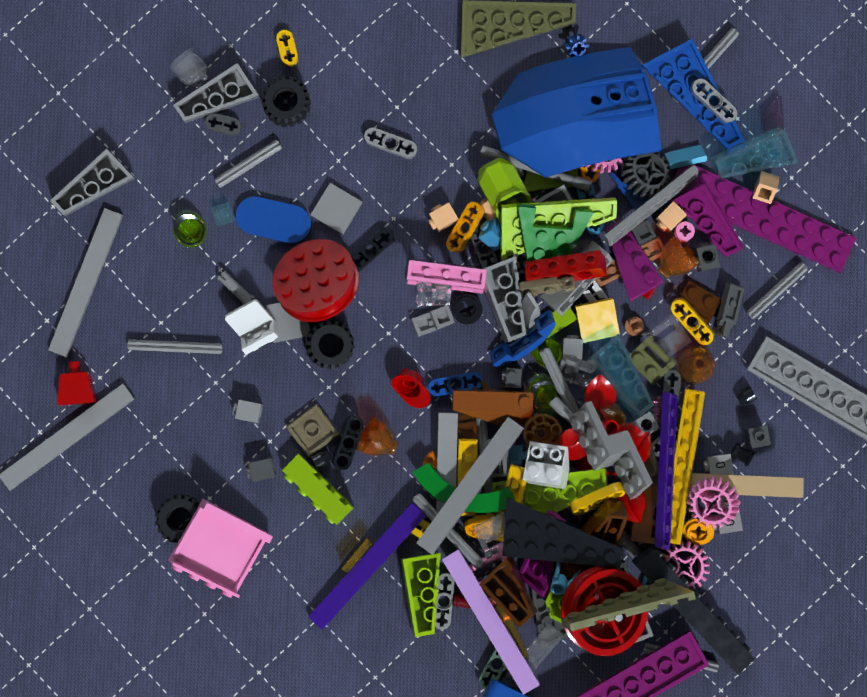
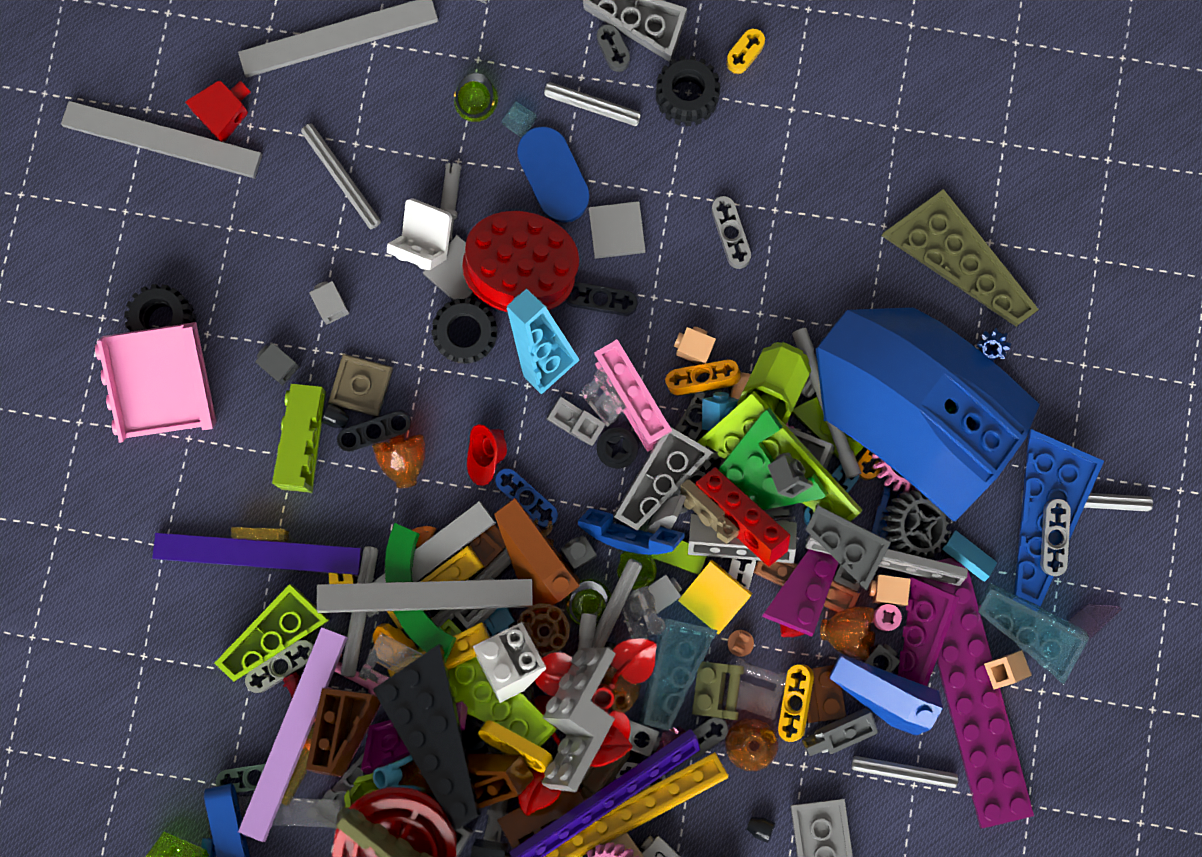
camera: 55 degrees right, 5 degrees down
(373, 306) = (539, 342): none -> medium azure wedge
(565, 223) = (789, 475): none -> dark grey brick
(629, 220) = (850, 544): none -> dark grey wing
(730, 265) = (890, 696): none -> wedge

